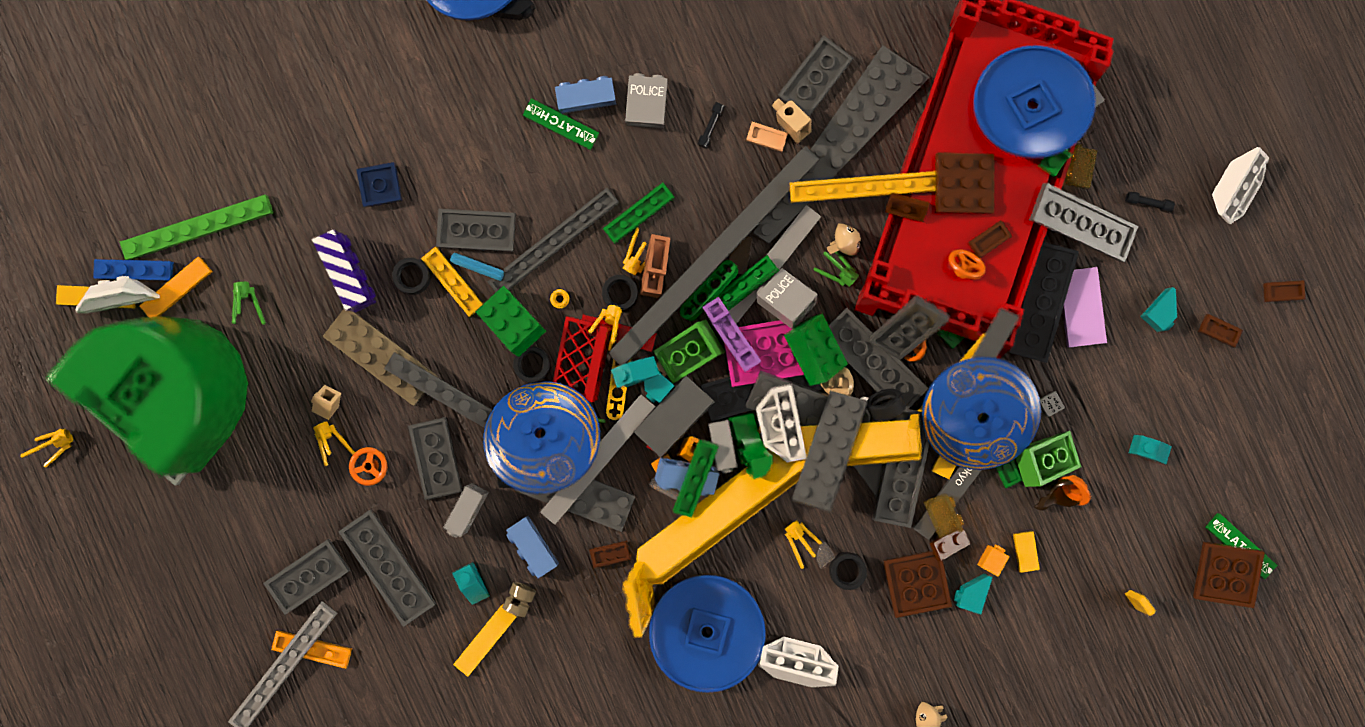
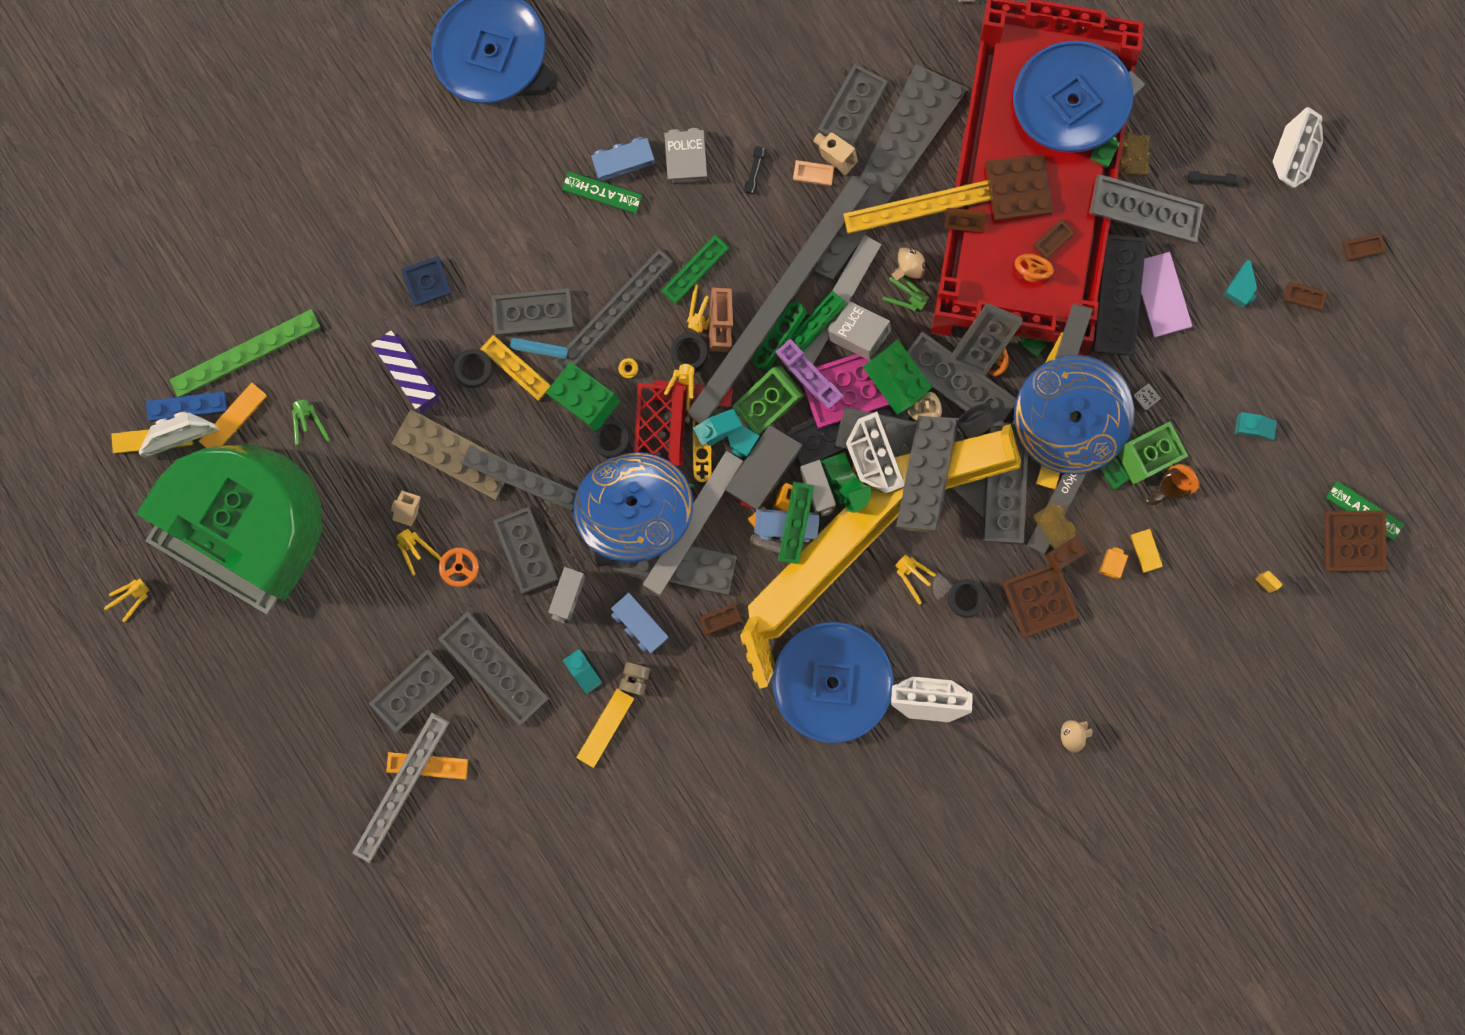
camera: 10 degrees left, 5 degrees down
(973, 594) = (1098, 603): teal slope -> none

